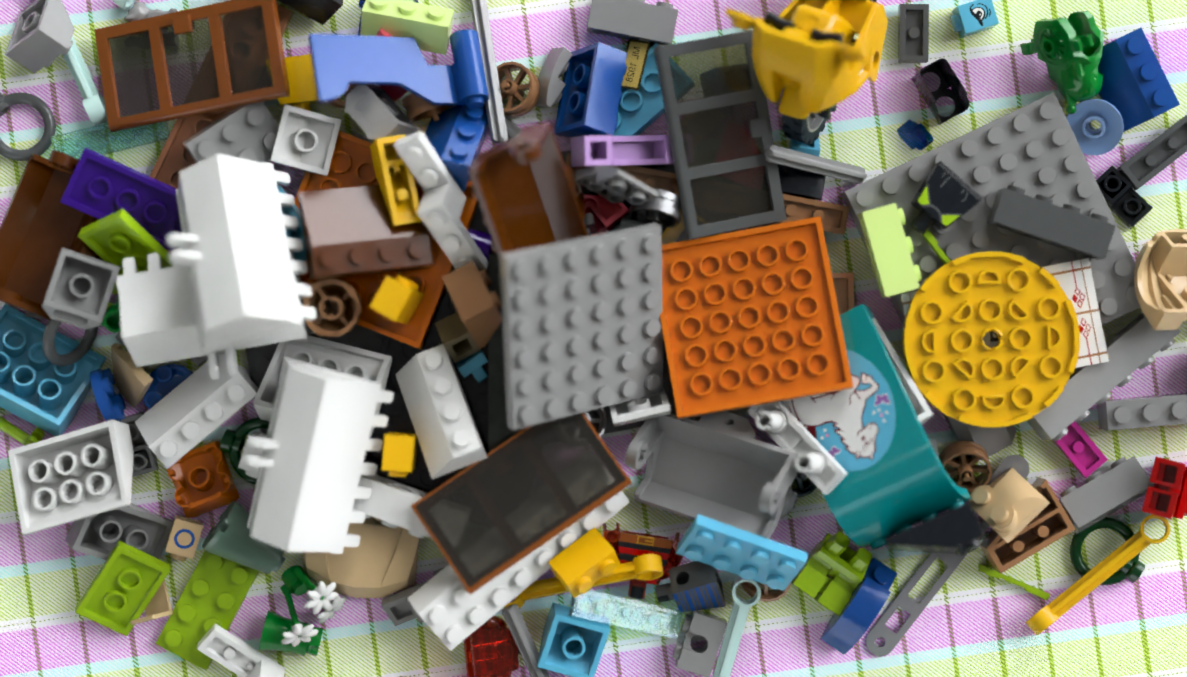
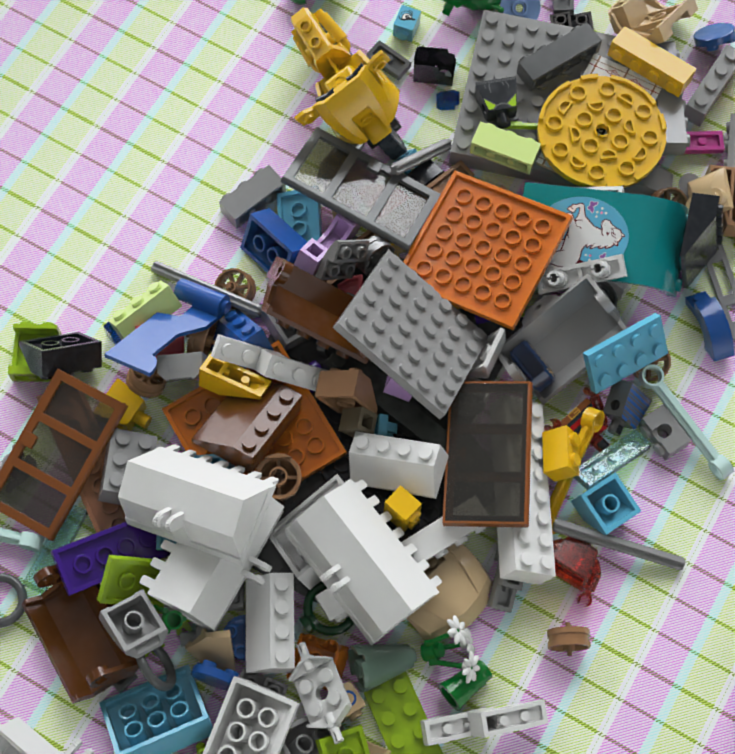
camera: 55 degrees left, 20 degrees down
(150, 529) = (309, 678): none -> white plate
(305, 140) = (162, 423): white slope -> none
(397, 299) = (306, 433): yellow brick -> none
(550, 85) = (250, 264): light grey slope -> none
(635, 61) = (280, 210): clear yellow sticker -> none
(663, 463) = (532, 366): none -> dark blue animal
(838, 561) = (680, 324): lime hips -> none
(1122, 330) = (651, 61): none -> yellow brick

